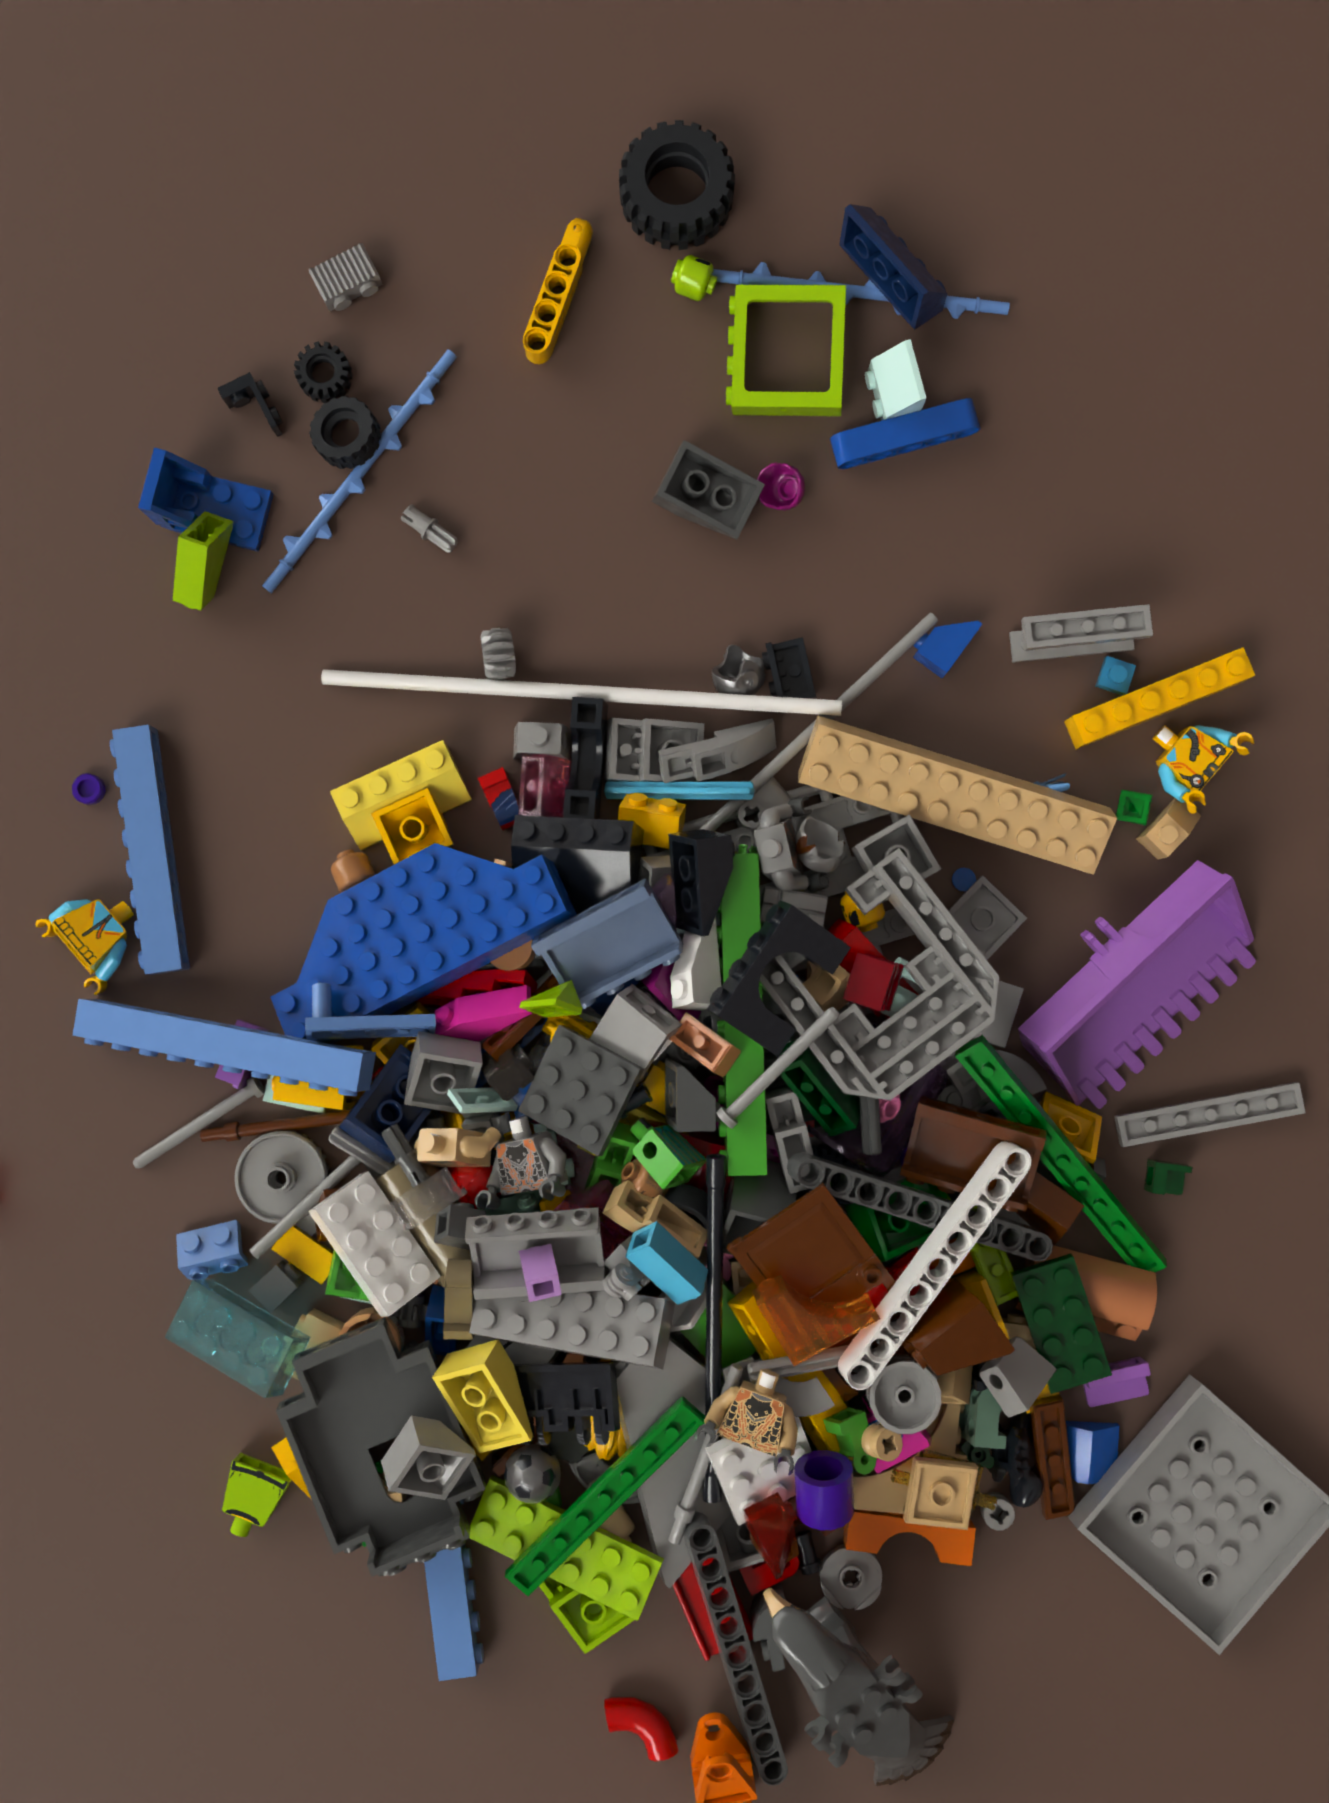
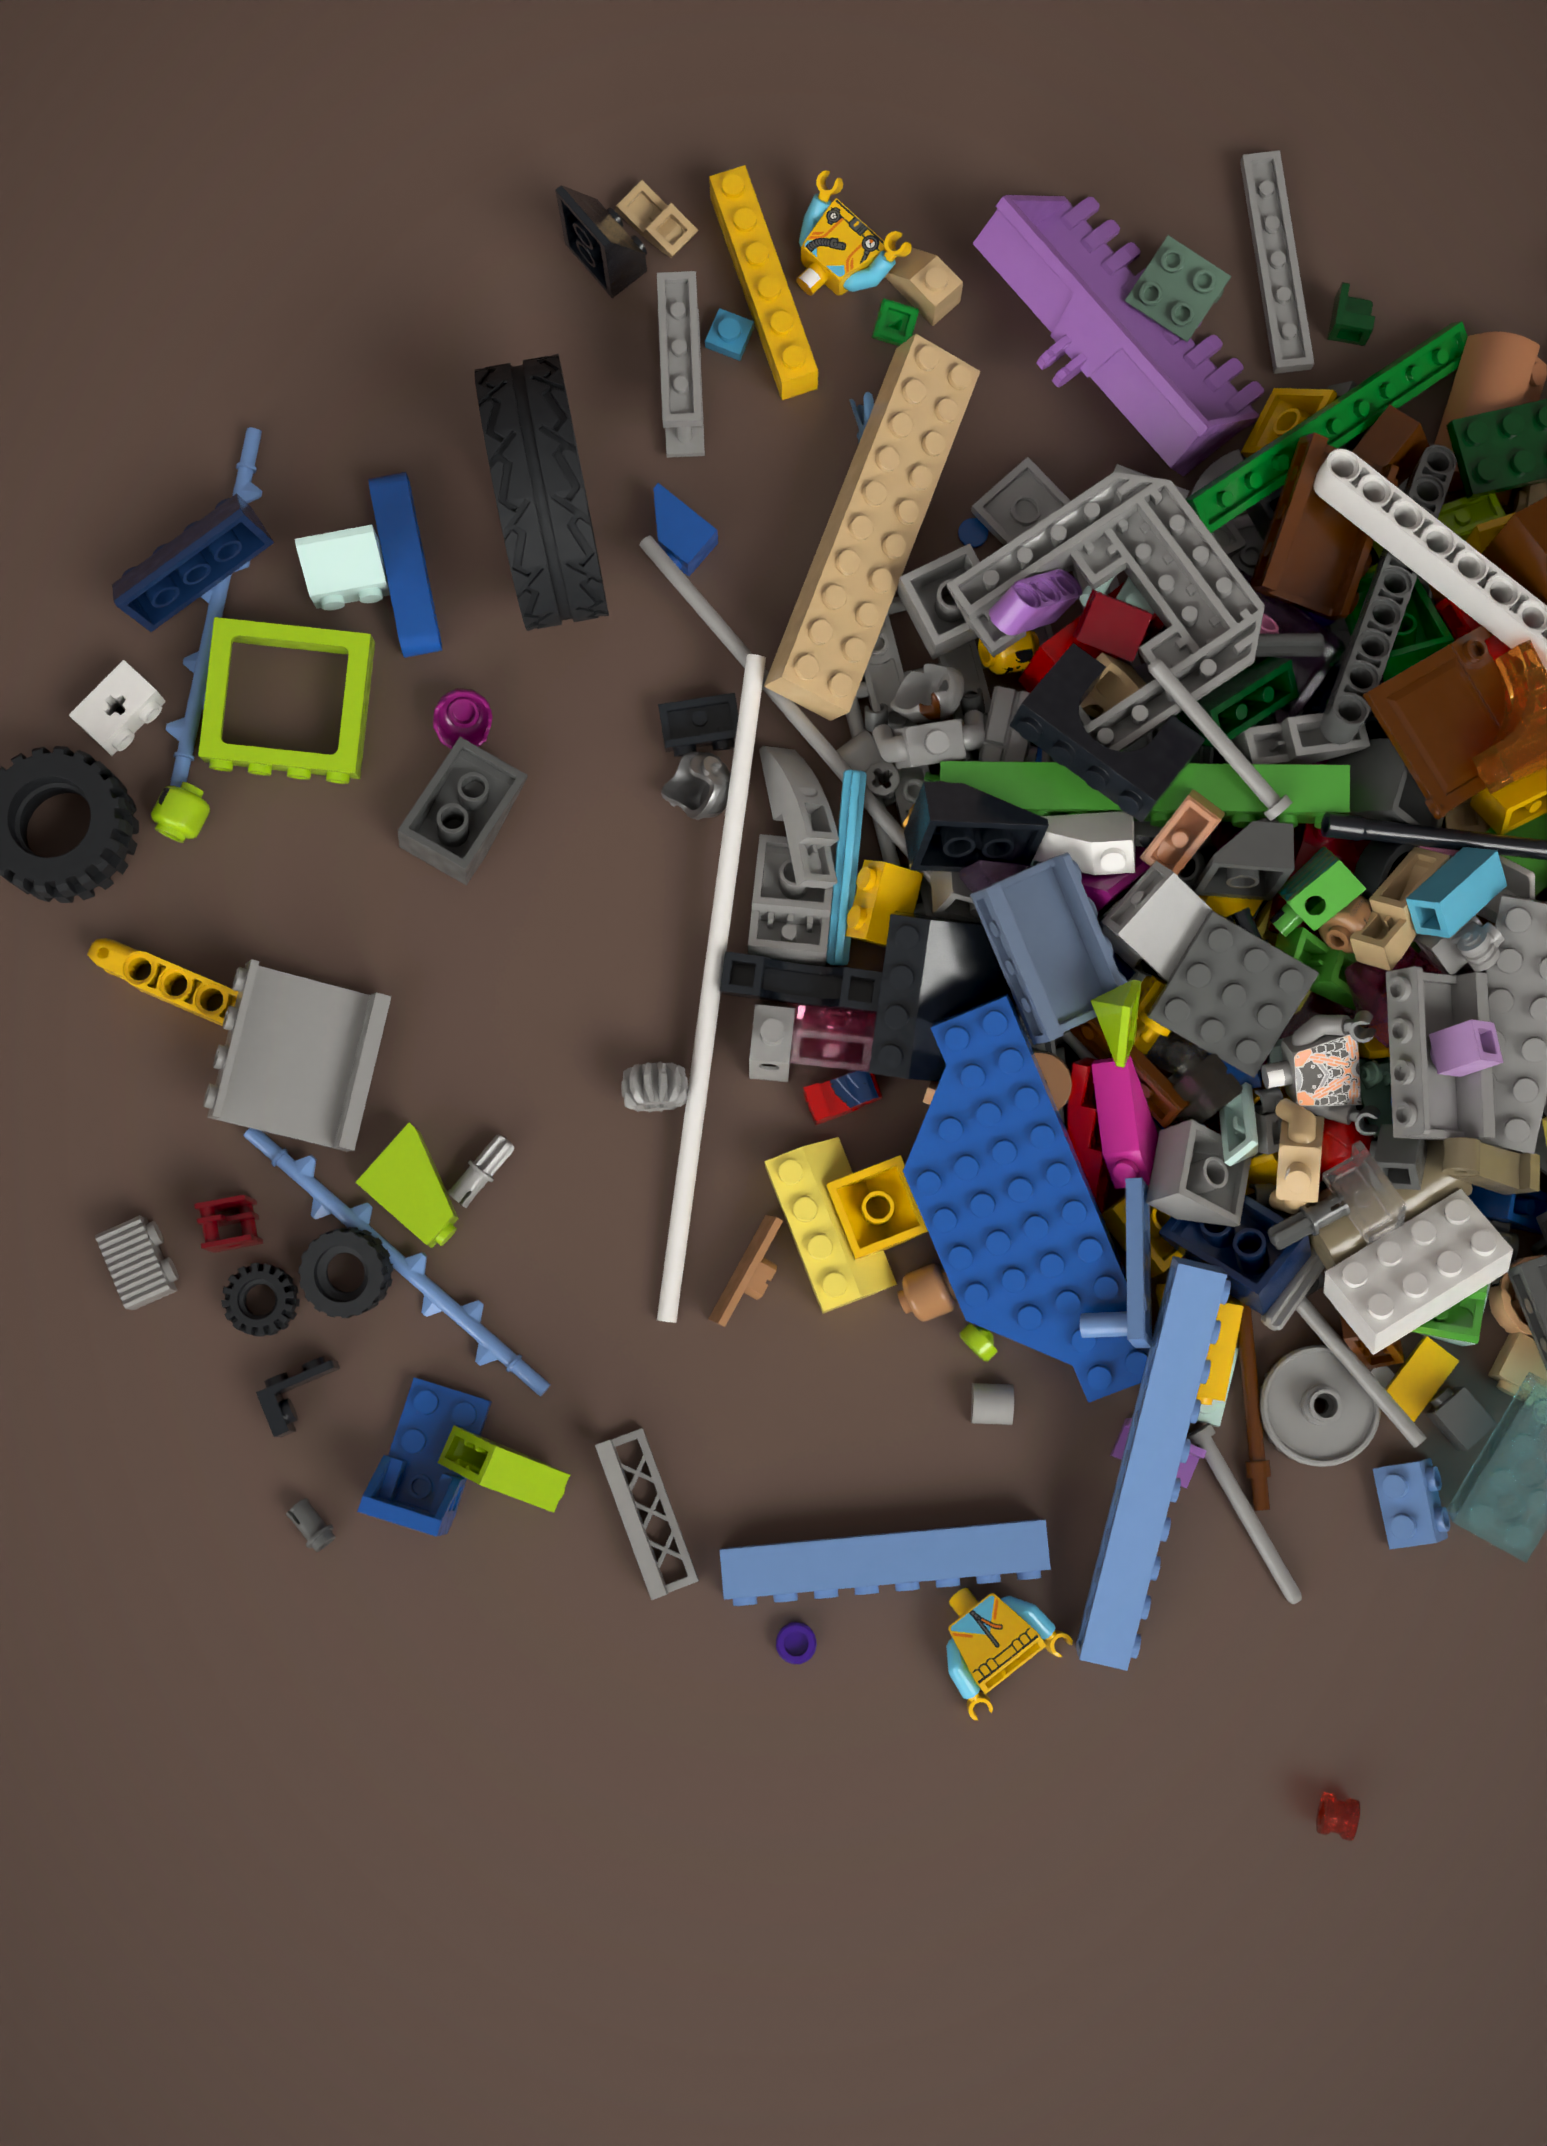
camera: 85 degrees left, 5 degrees down
(157, 424) = (311, 1525): none -> dark grey pin
(171, 660) = (632, 1519): none -> light grey fence
(272, 926) = (992, 1403): none -> light grey brick
(314, 913) = (979, 1341): none -> lime tile
(361, 737) = (750, 1273): none -> medium nougat piece
(377, 325) = (211, 1222): none -> dark red piece
(412, 477) = (411, 1189): none -> lime slope
(506, 380) = (297, 1057): none -> light grey panel
(769, 209) = (120, 688): none -> white brick
(889, 919) = (1035, 602): none -> medium lavender beam
(953, 520) = (540, 492): none -> black tyre
(1178, 1033) = (1178, 288): none -> sand green hinge
(1184, 566) = (600, 241): none -> black slope
(1208, 610) = (655, 220): none -> tan slope

